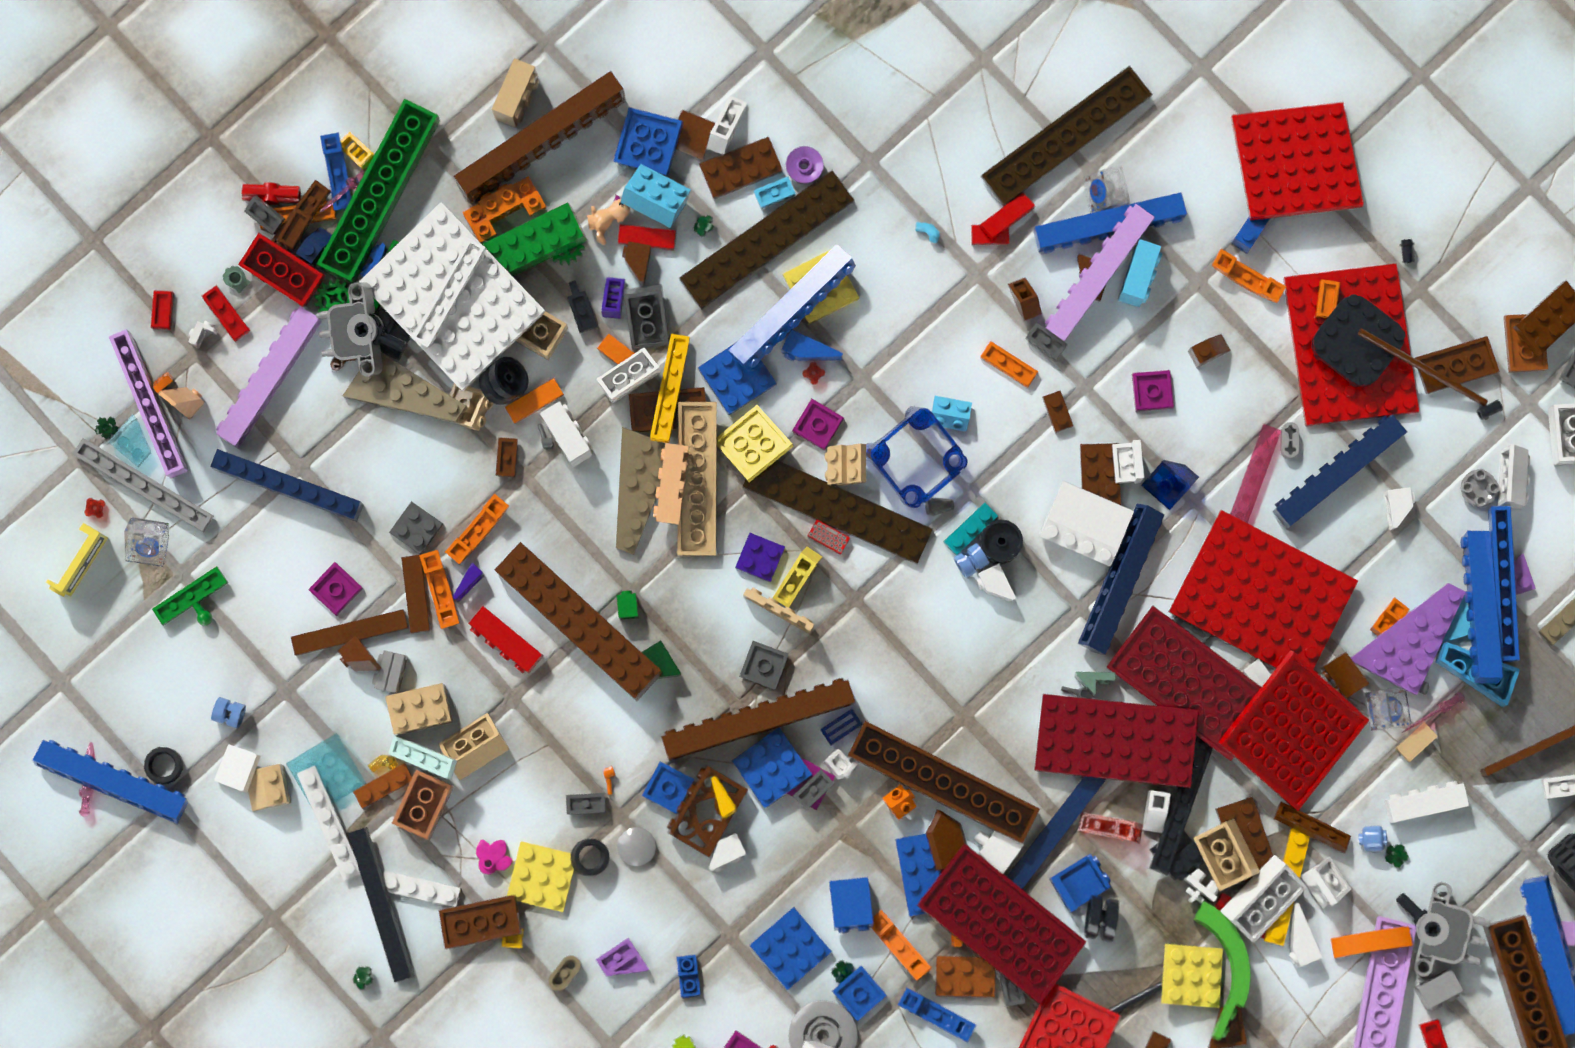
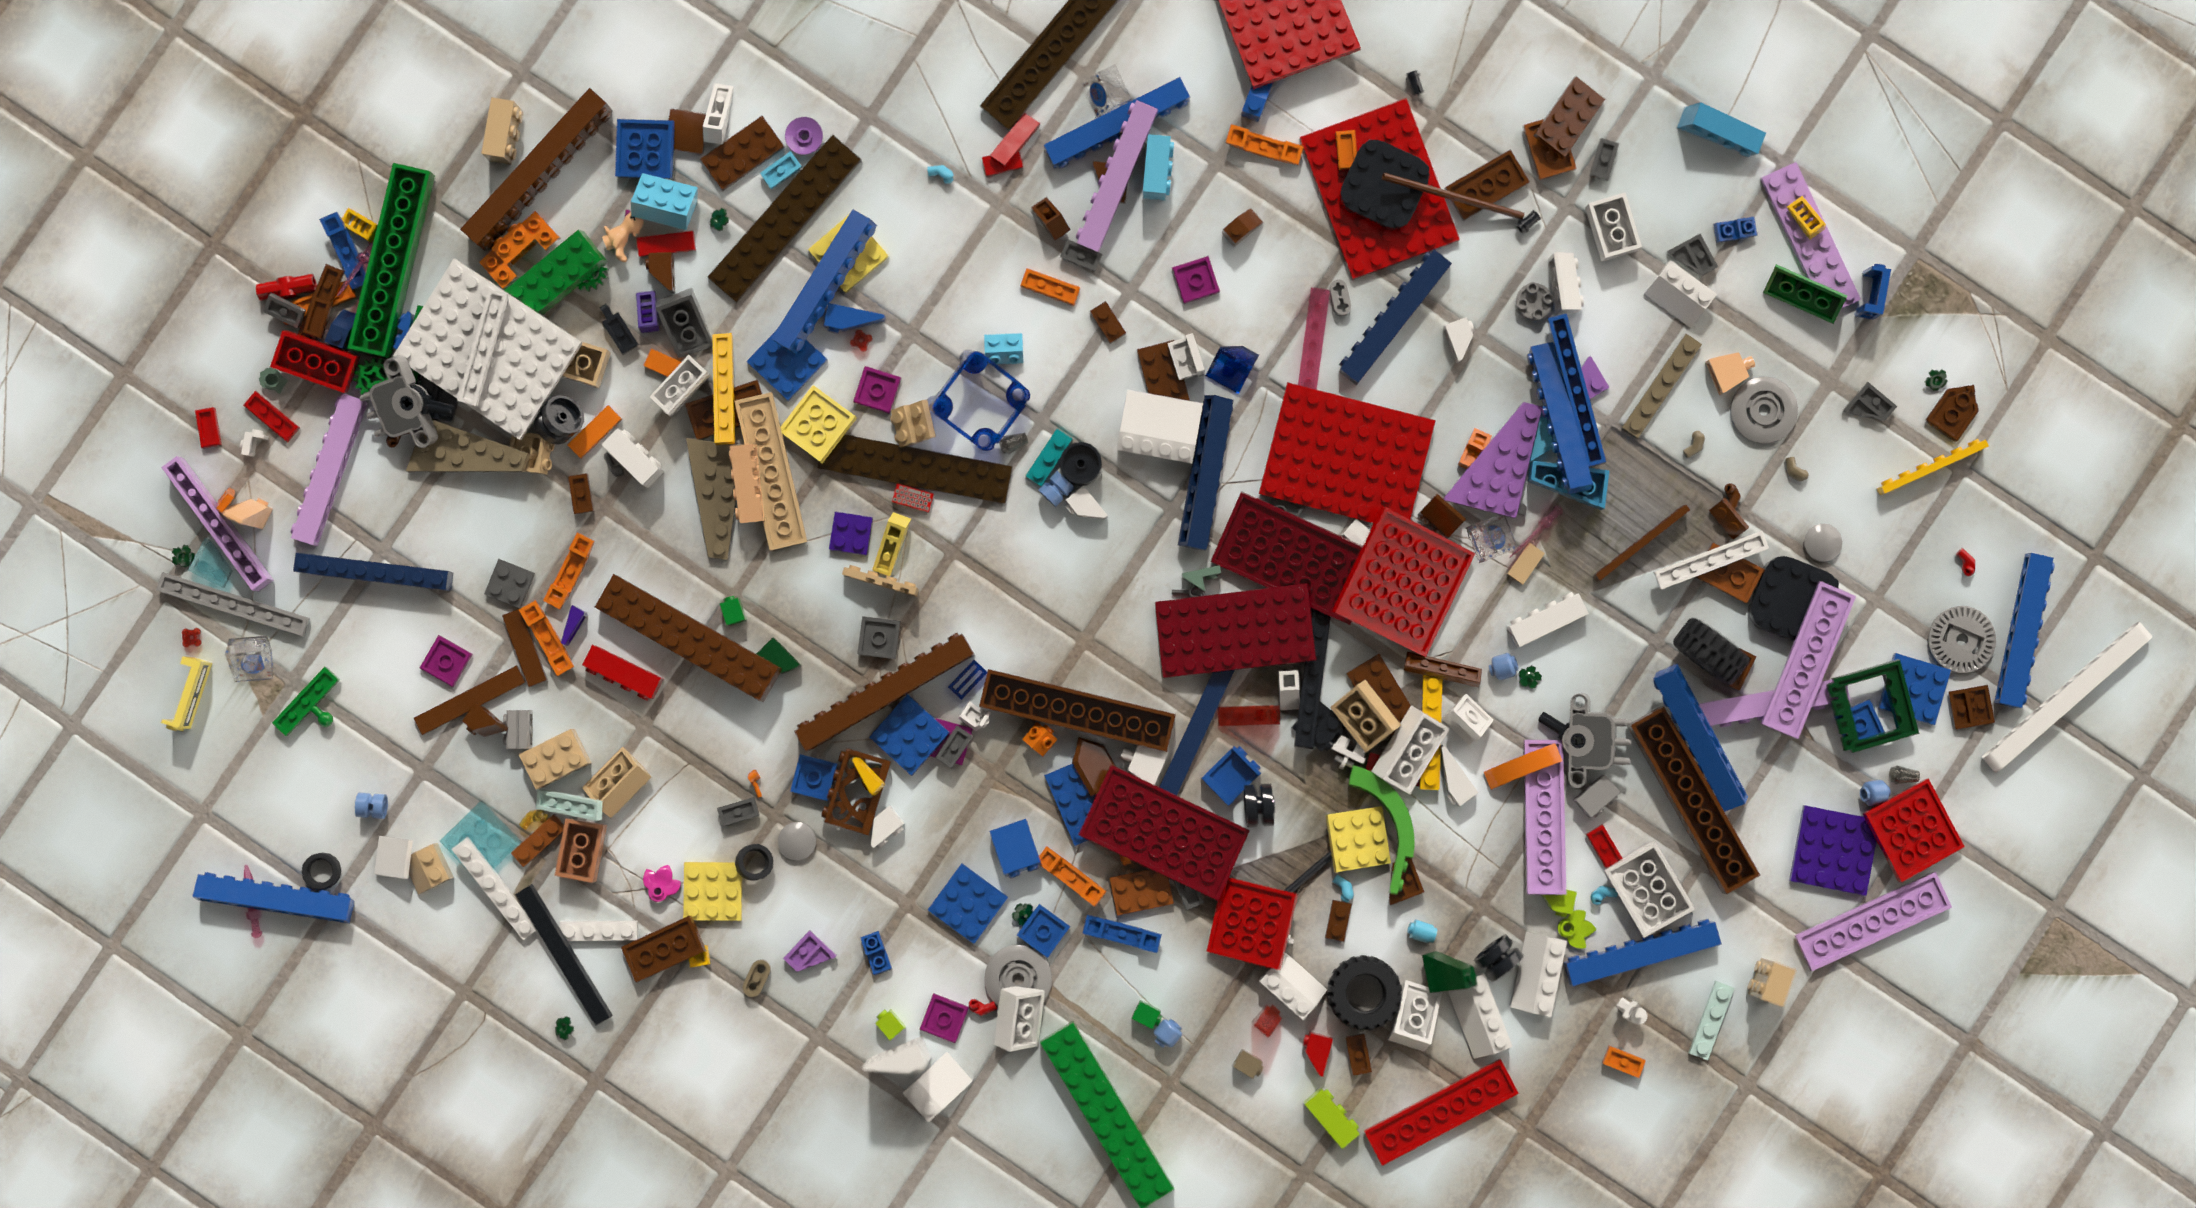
camera: 10 degrees left, 5 degrees up
(1169, 1021) = (1346, 887): none -> medium azure arm

